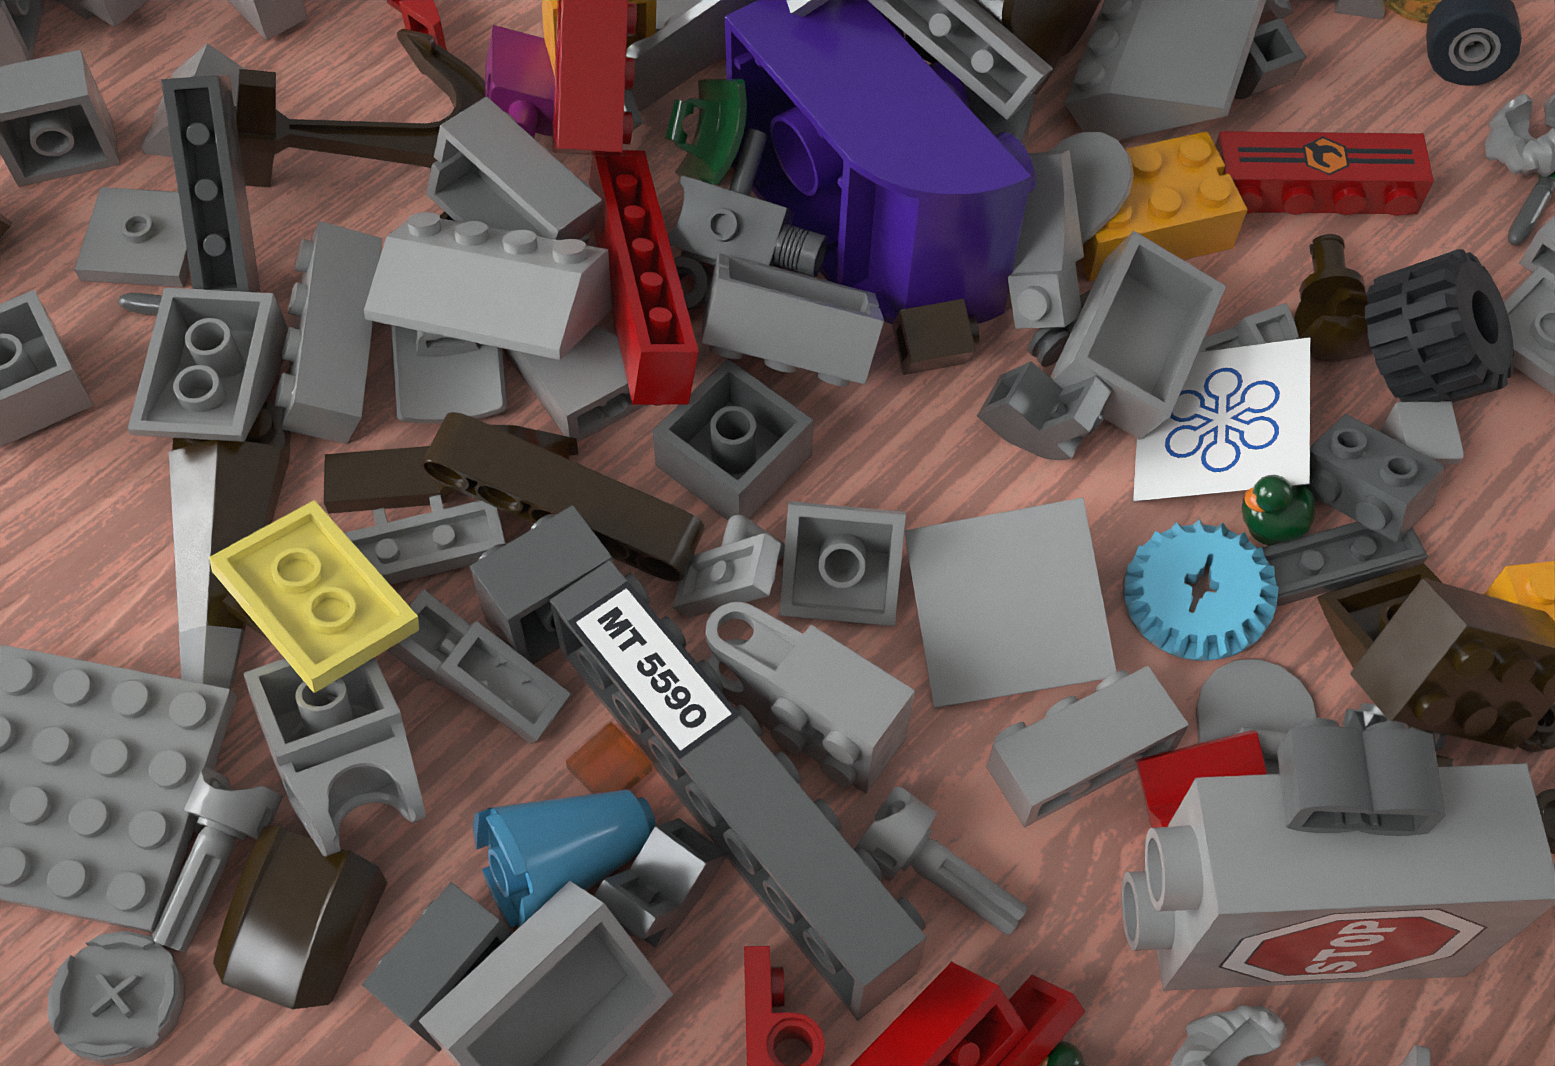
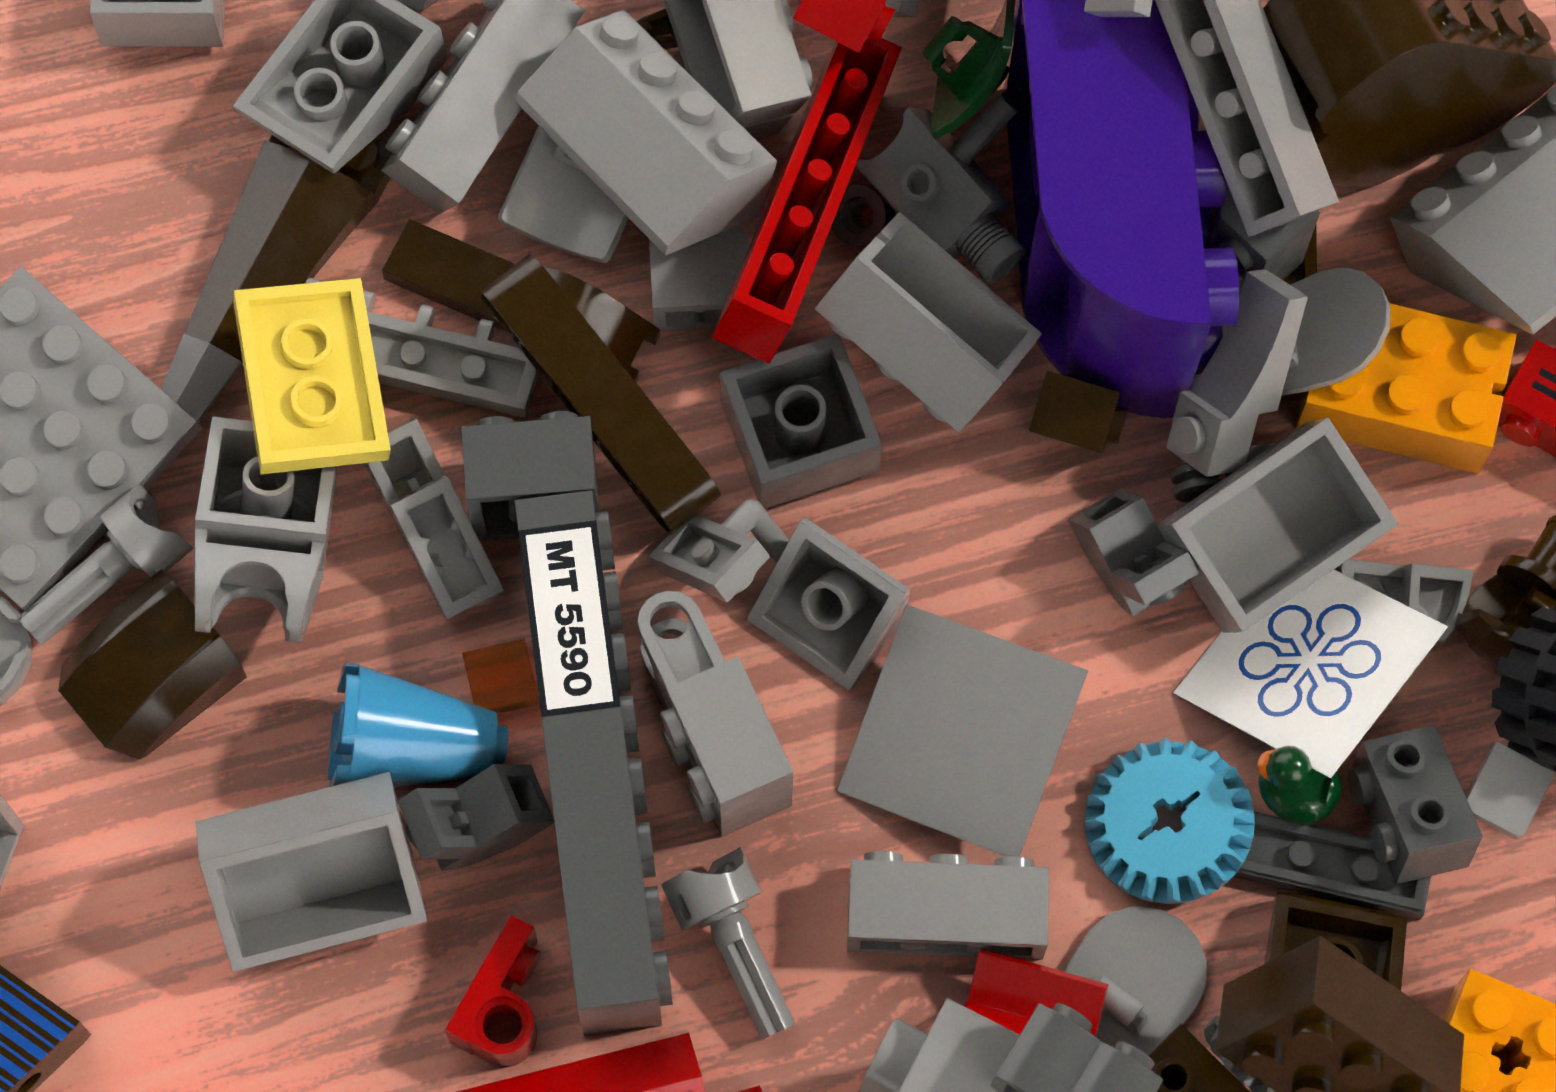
camera: 30 degrees right, 10 degrees up
(435, 956) = (245, 770): dark grey brick -> none

